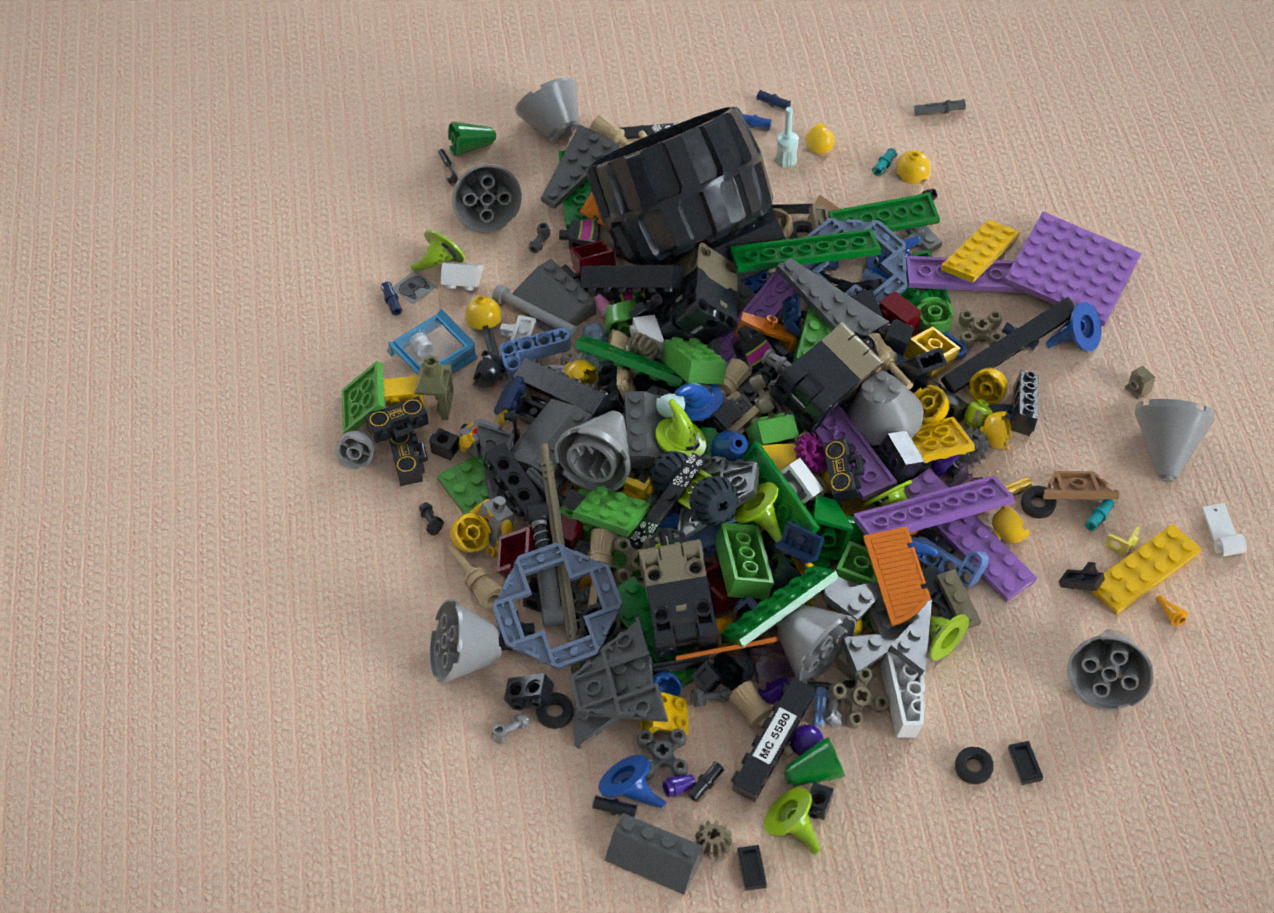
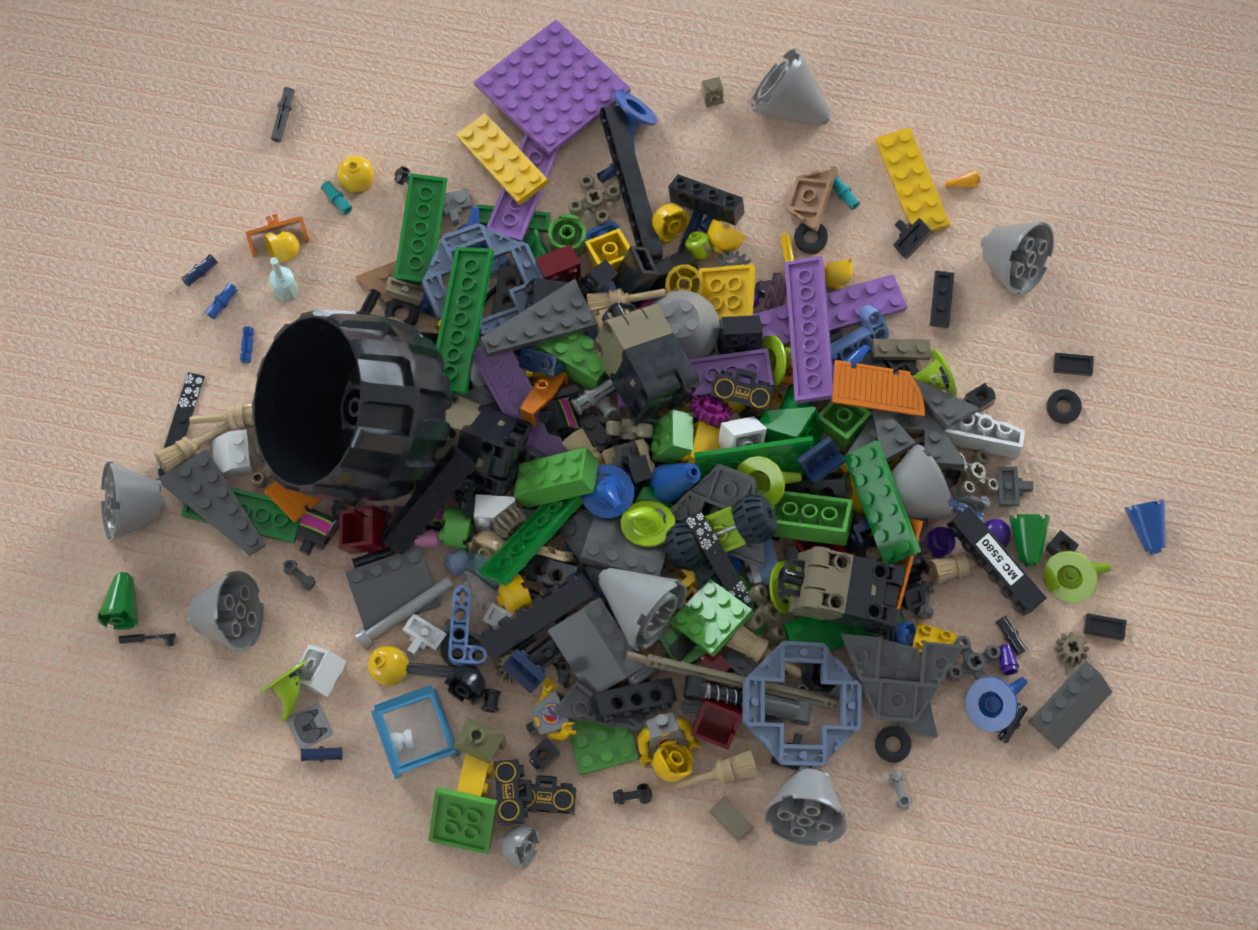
camera: 70 degrees left, 20 degrees up
(436, 596) = (731, 818): none -> dark tan tile
(479, 394) = (491, 701): none -> black bush
(529, 691) = (870, 759): black brick -> none
(663, 406) = (615, 520): light aqua hair -> none
(836, 129) = (275, 225): none -> orange piece
(863, 738) = (1011, 486): none -> dark grey hinge
(879, 873) = (1149, 524): none -> blue cone
(939, 678) = (985, 391): none -> black brick
(1032, 625) = (941, 299): none -> black plate
(1125, 546) = (885, 181): light yellow bracket -> none
(1223, 532) = (907, 103): white door -> none

